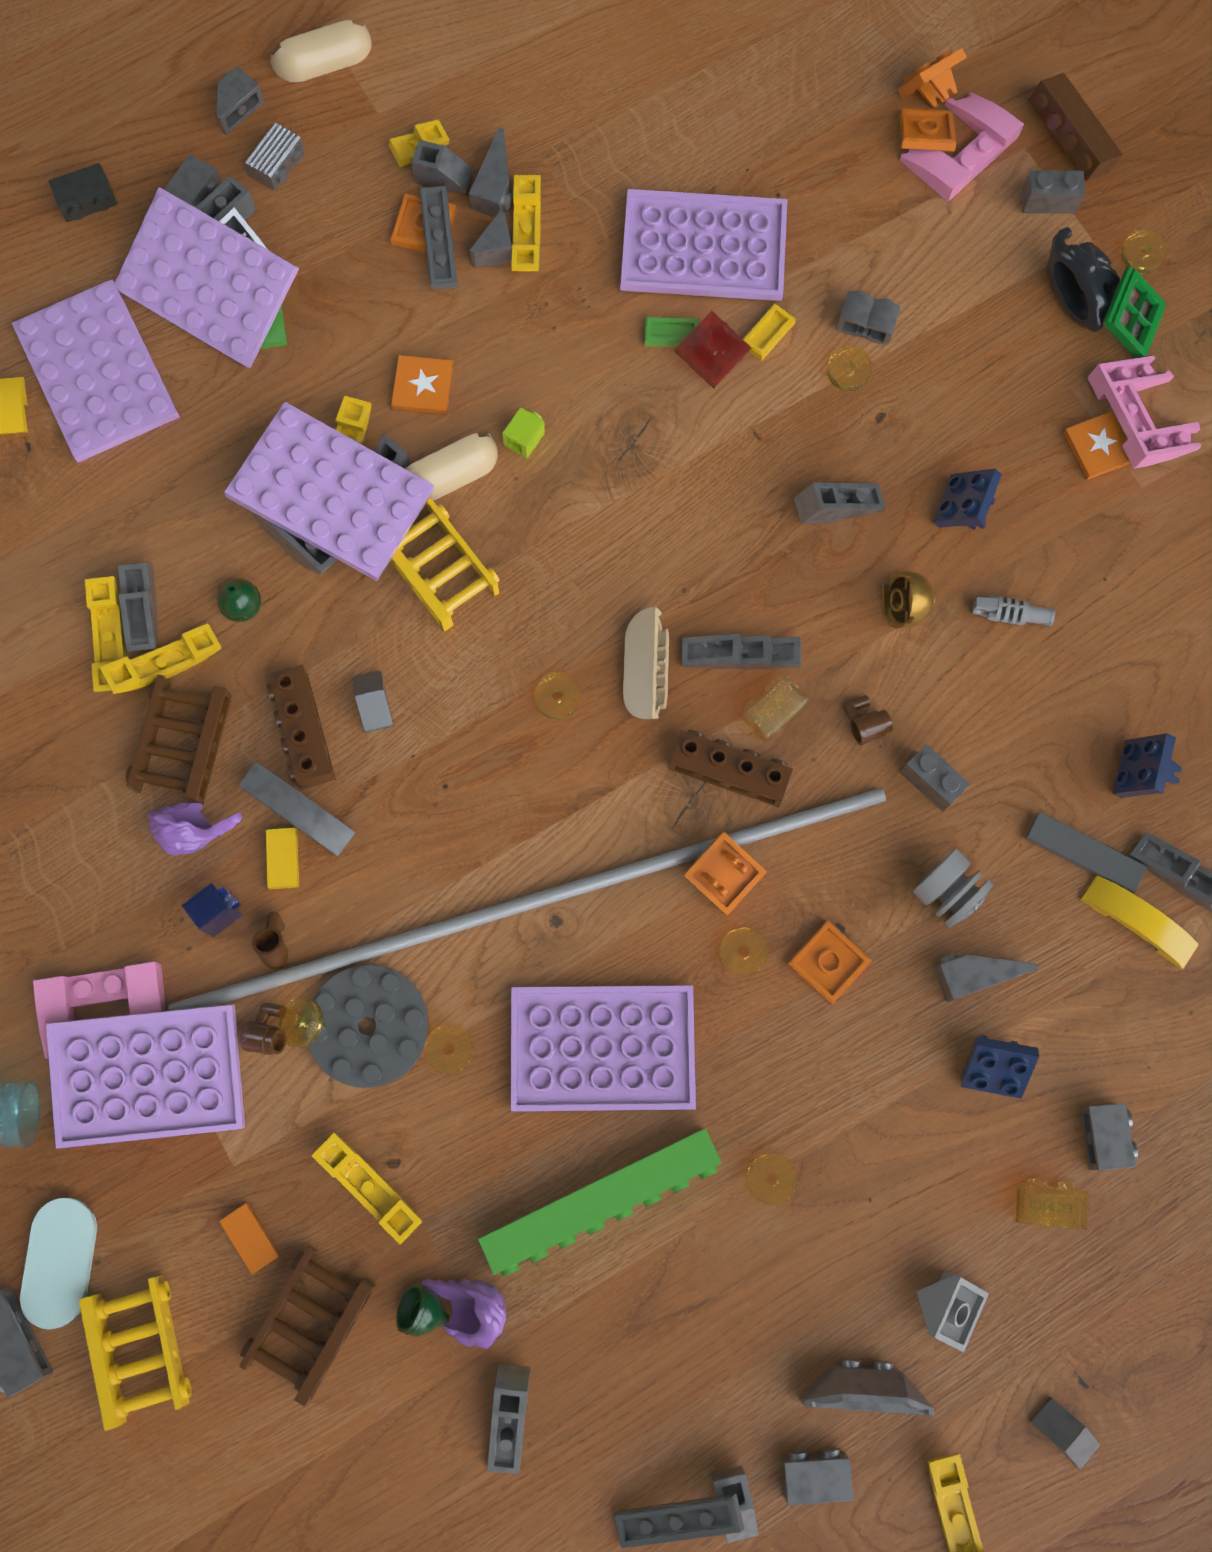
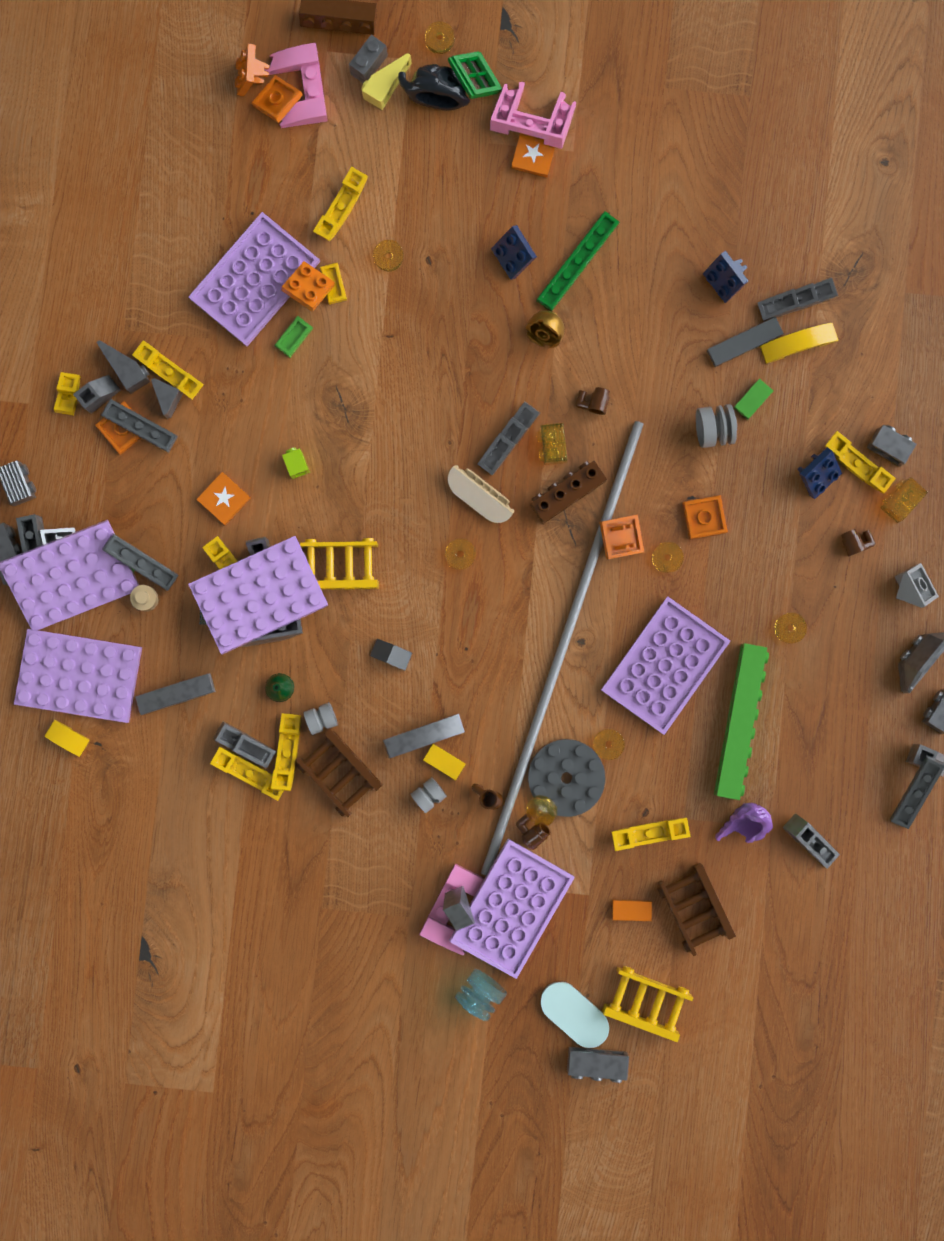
camera: 50 degrees left, 10 degrees up
(95, 1002) = (458, 909): none -> flat silver slope
(146, 487) = (175, 694): none -> flat silver slope
(184, 828) = (393, 803): medium lavender hair -> none
(213, 909) = (449, 815): clear blue brick -> none
(220, 865) = (428, 795): none -> light grey wheel
(228, 668) = (320, 718): none -> light grey wheel
(238, 377) = (144, 598): none -> tan piece
(276, 339) = (140, 562): none -> dark grey tile
(301, 727) = (379, 702): reddish brown brick -> none
(420, 1311) = (729, 849): dark green helmet -> none
(457, 464) = (287, 513): tan brick -> none
(712, 349) = (323, 323): clear red plate -> none
(741, 300) = (308, 286): none -> orange plate
(838, 501) = (463, 322): flat silver slope -> none
(868, 317) = (367, 221): flat silver brick -> none
(872, 279) = (342, 204): none -> yellow slope
(935, 778) = (651, 389): flat silver brick -> none
(944, 1181) = (854, 544): none -> reddish brown piece
(973, 973) = (764, 451): flat silver slope -> none
(1012, 611) = (592, 276): light grey hinge -> none
(1018, 583) = (578, 261): none -> green tile
(1024, 915) = (753, 399): none -> bright green tile
(1037, 225) = (384, 82): none -> light yellow slope
(1050, 1110) = (858, 464): none -> yellow slope

